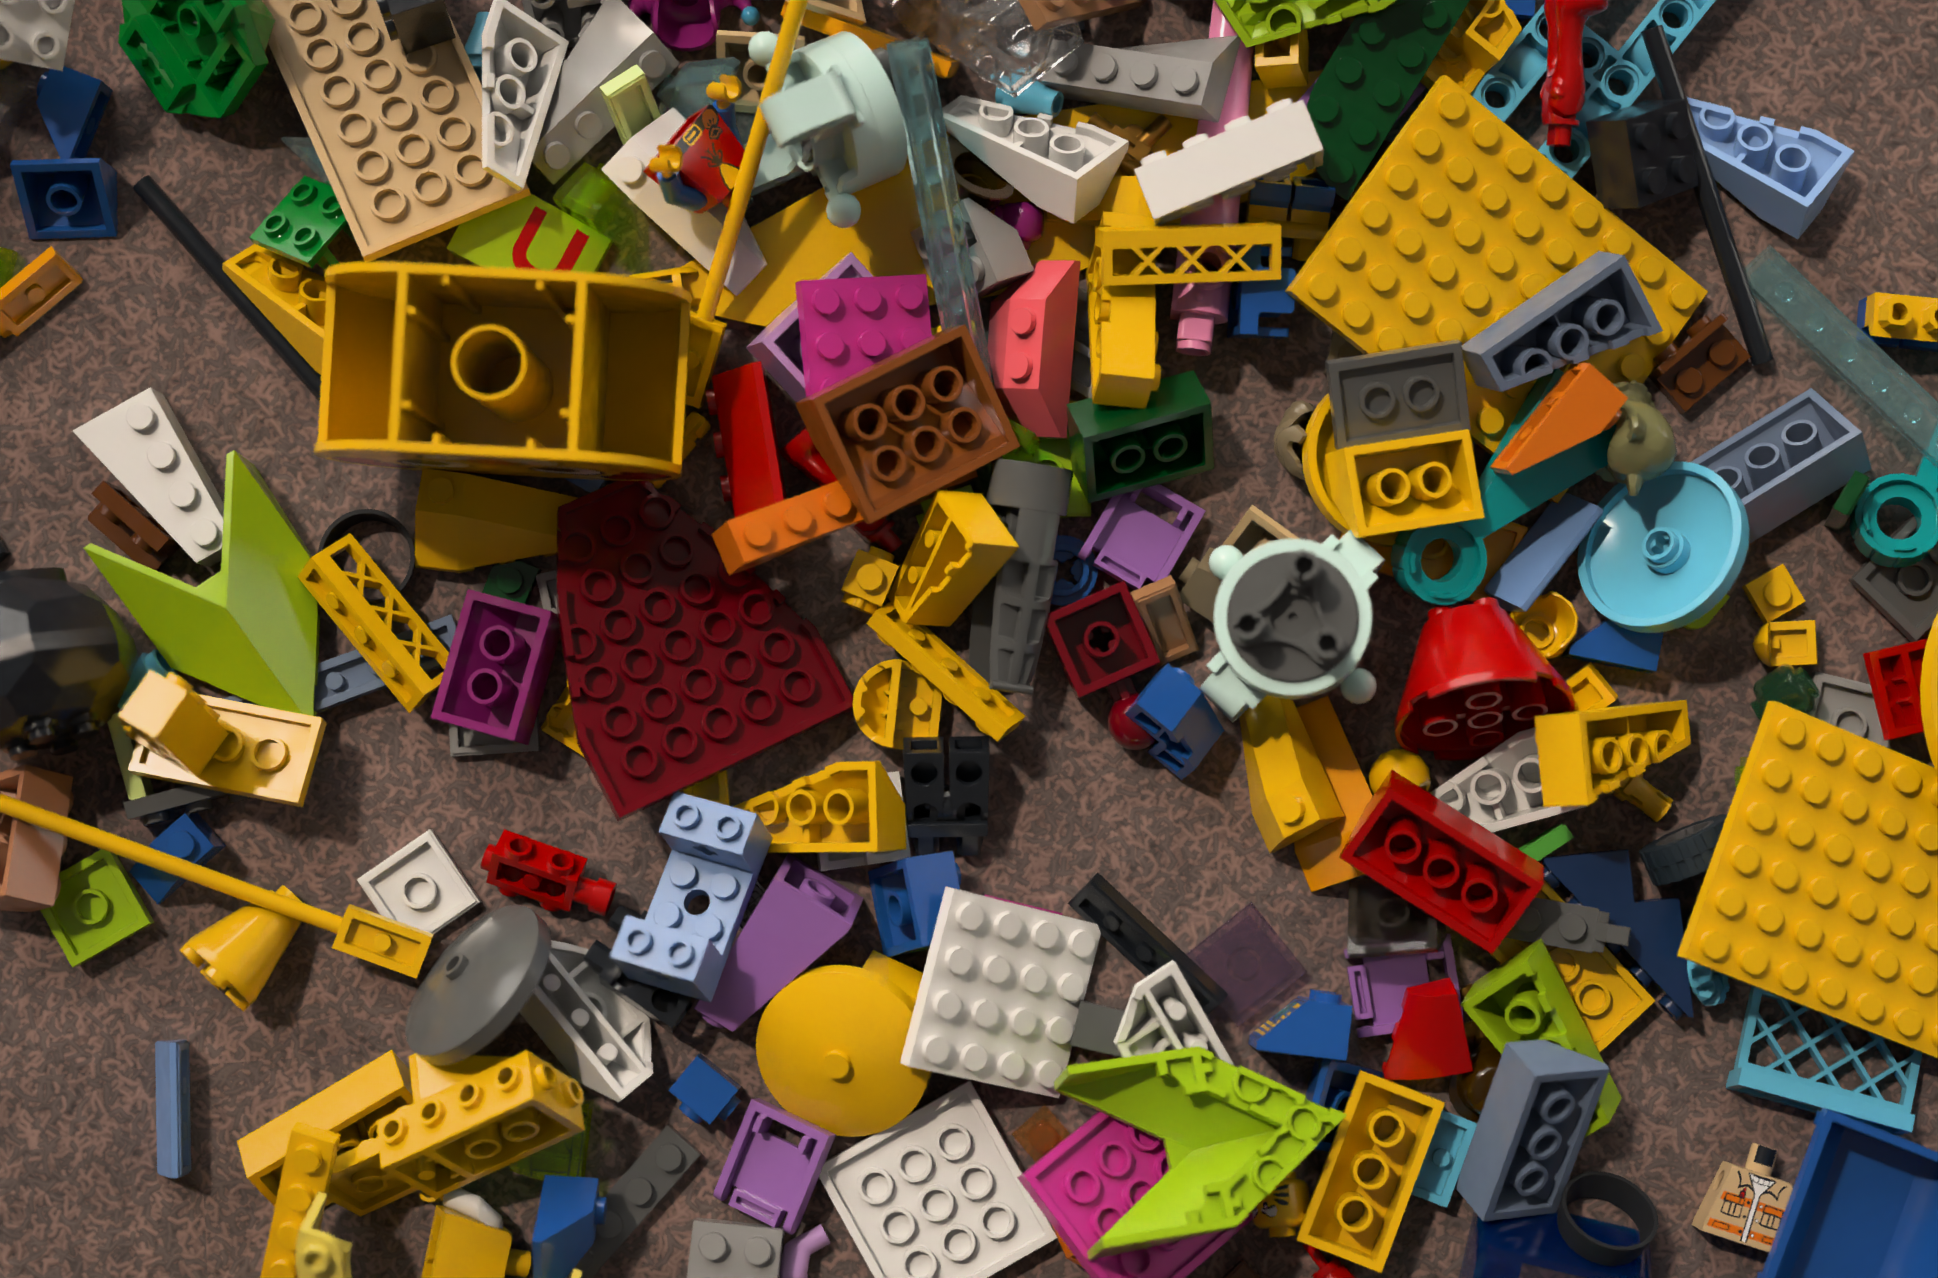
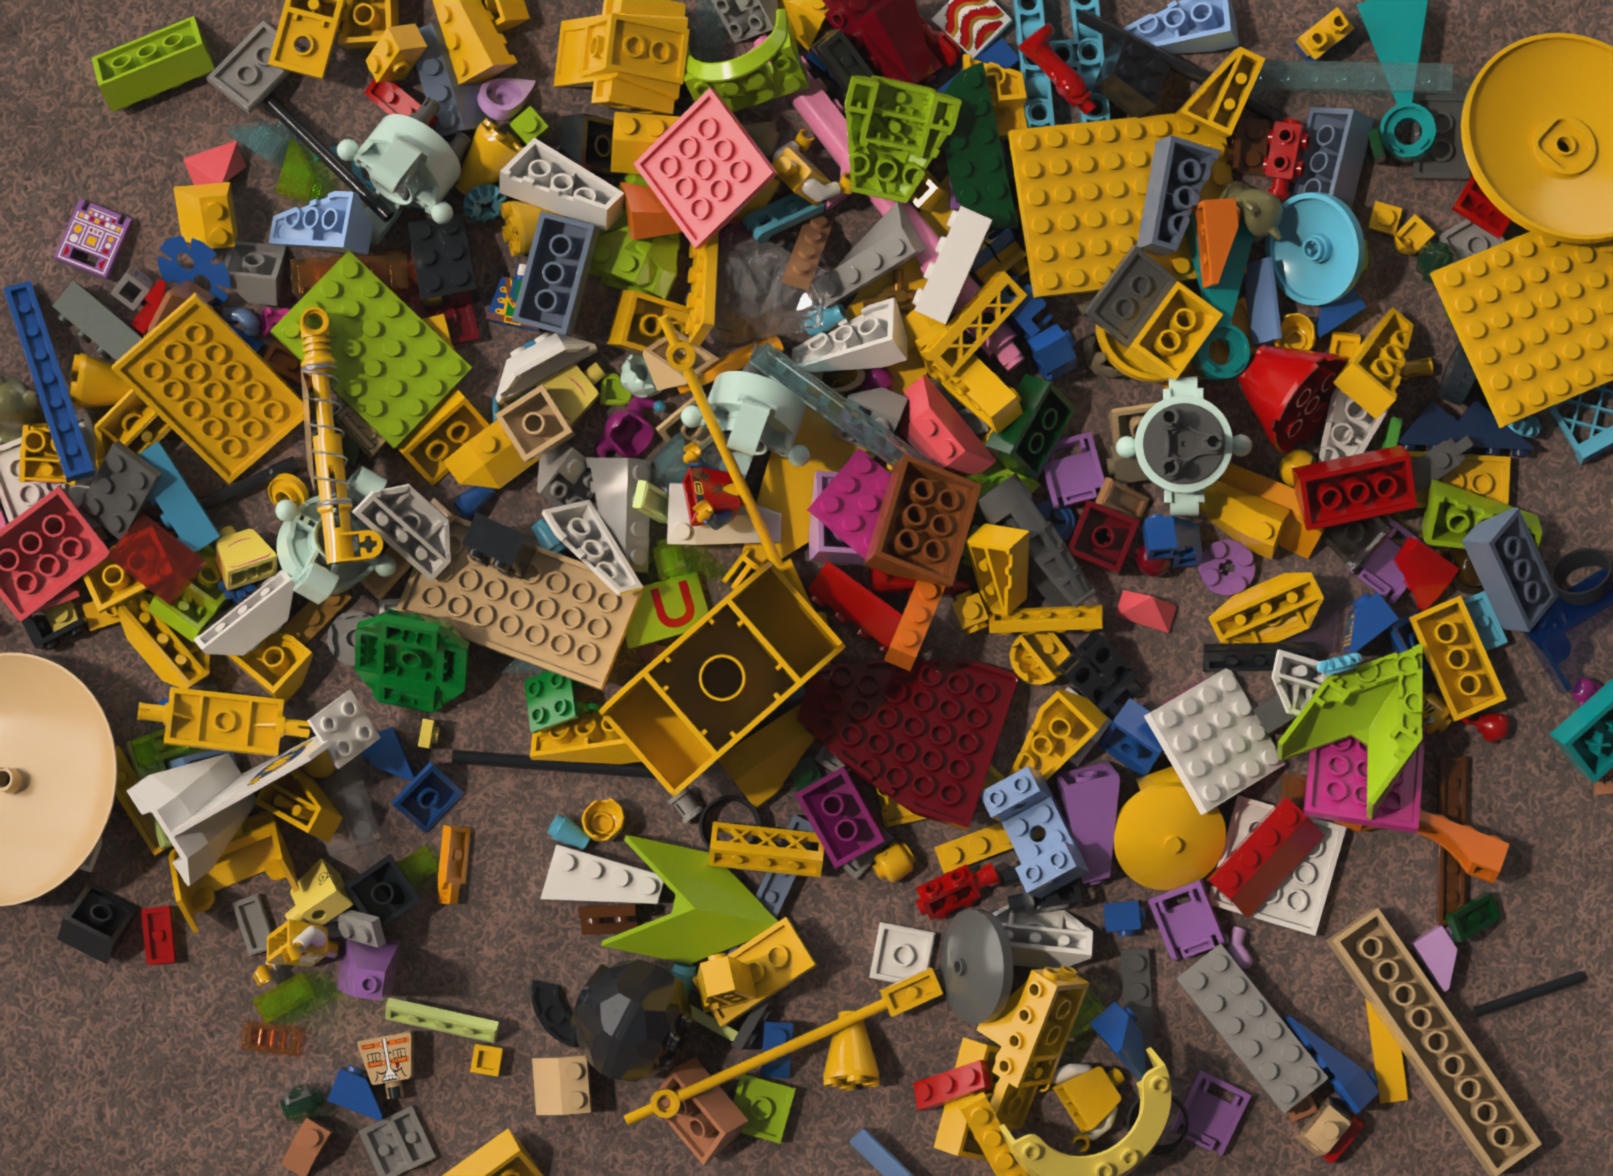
camera: 40 degrees left, 0 degrees up
(137, 130) = (429, 734): none -> light yellow plate
(183, 388) = (568, 832): none -> medium azure cone
(233, 414) = (603, 820): none -> yellow hair
(323, 1092) = (952, 1085): none -> red plate
(342, 486) = (686, 805): none -> light grey bush
(510, 776) = (893, 861): none -> yellow head
(617, 849) = (976, 846): none -> yellow plate
(930, 1182) = (1265, 857): none -> red slope
(1070, 772) = (1145, 610): none -> coral slope
(1203, 837) = (1235, 581): none -> medium lavender plate
(1208, 906) = (1269, 610): none -> yellow wedge
(1227, 1045) = (1339, 663): none -> medium azure gear
(1248, 377) = (1053, 353): none -> blue brick
(1723, 273) = (1224, 94): none -> yellow wedge
(1740, 411) = (1288, 150): none -> red brick

